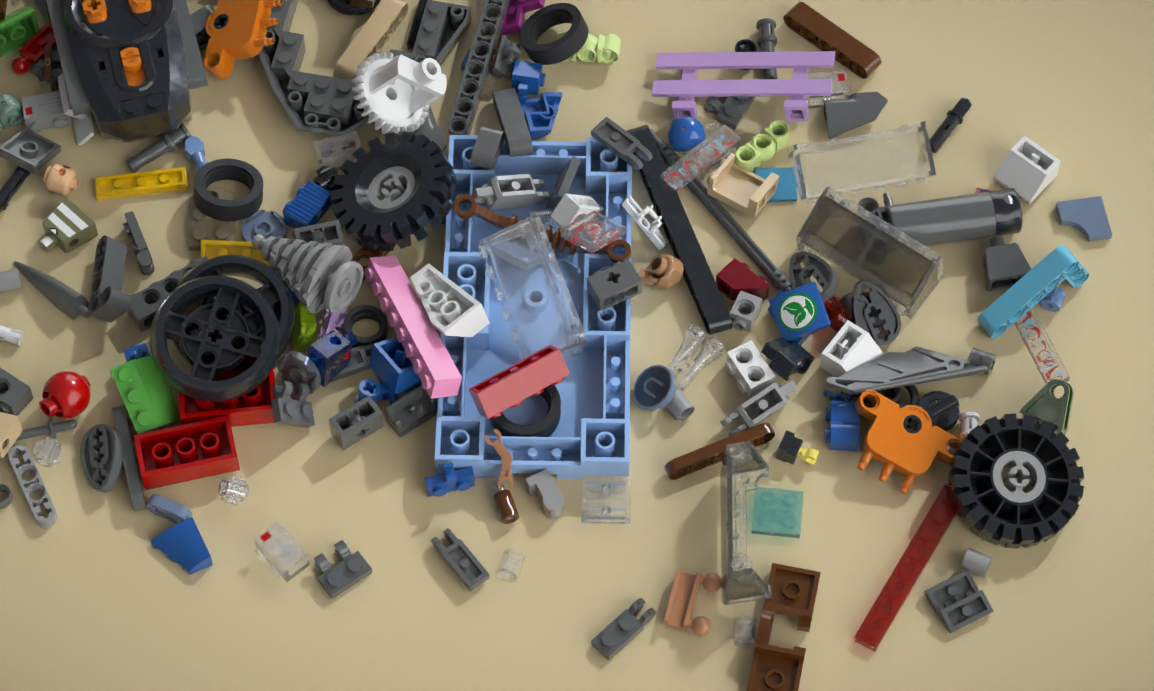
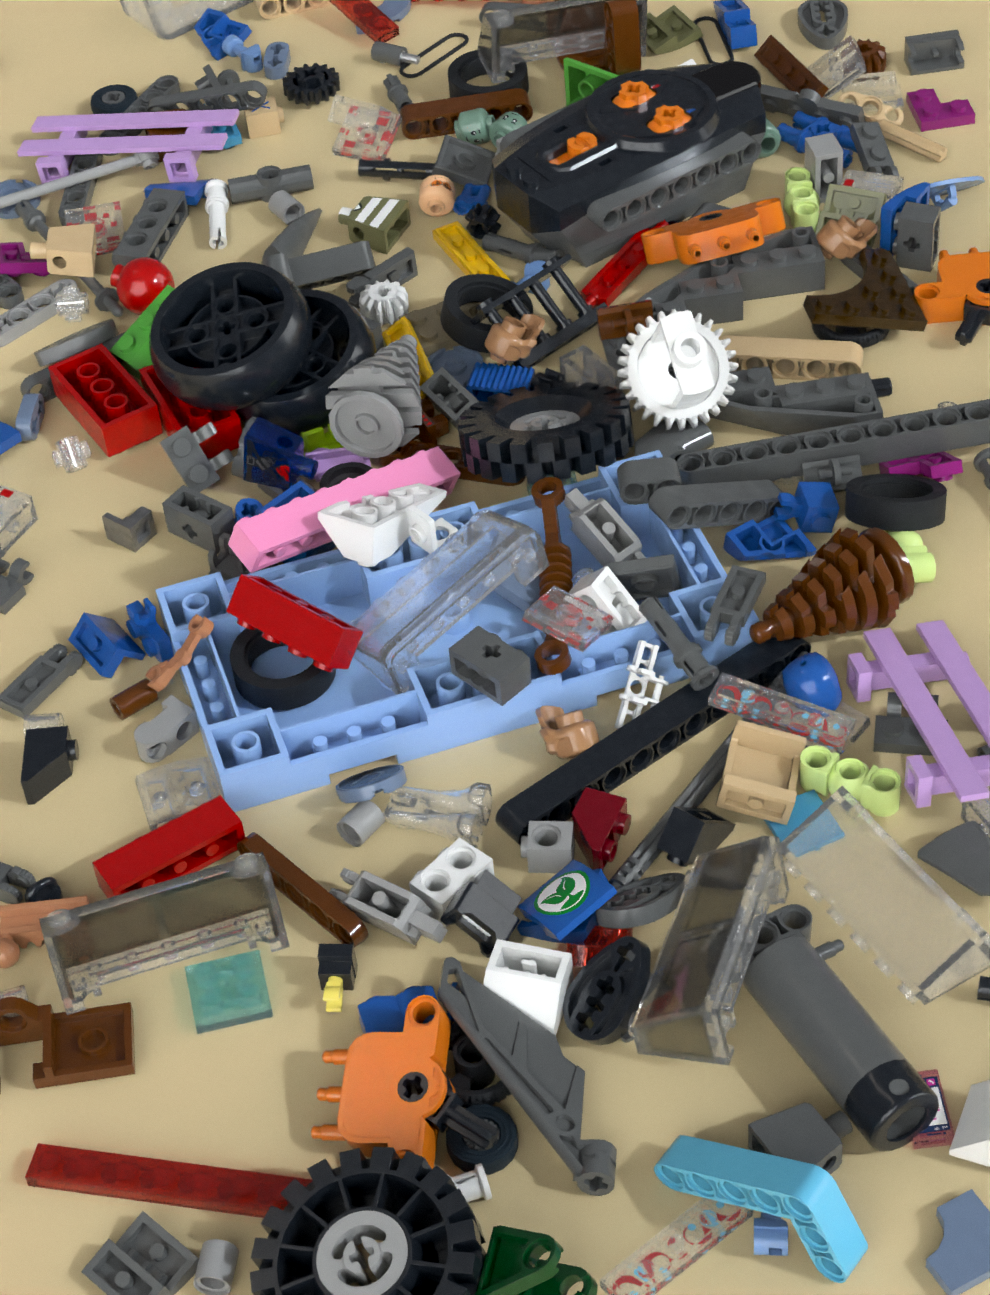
camera: 75 degrees right, 15 degrees down
(78, 162) = (470, 197): none -> blue piece
(112, 160) = (482, 220): none -> black gear
(169, 250) = (384, 302): none -> white gear
(225, 105) = (618, 271): none -> red plate
(273, 151) = (566, 329): none -> black fence
(288, 176) = (513, 338): none -> medium nougat head
(313, 106) = (621, 319): none -> reddish brown hips
(333, 472) = (131, 531): none -> flat silver panel
(444, 513) = (103, 643): none -> blue panel
(473, 283) = (424, 529): none -> white bracket
(542, 570) = (47, 761): none -> black slope
(626, 85) = (844, 588): none -> reddish brown plant
(643, 184) = (686, 653): none -> dark grey pin
(657, 597) = (43, 890): none -> black tile
(662, 513) = (172, 849): none -> red brick
(769, 236) = (692, 833): none -> black slope

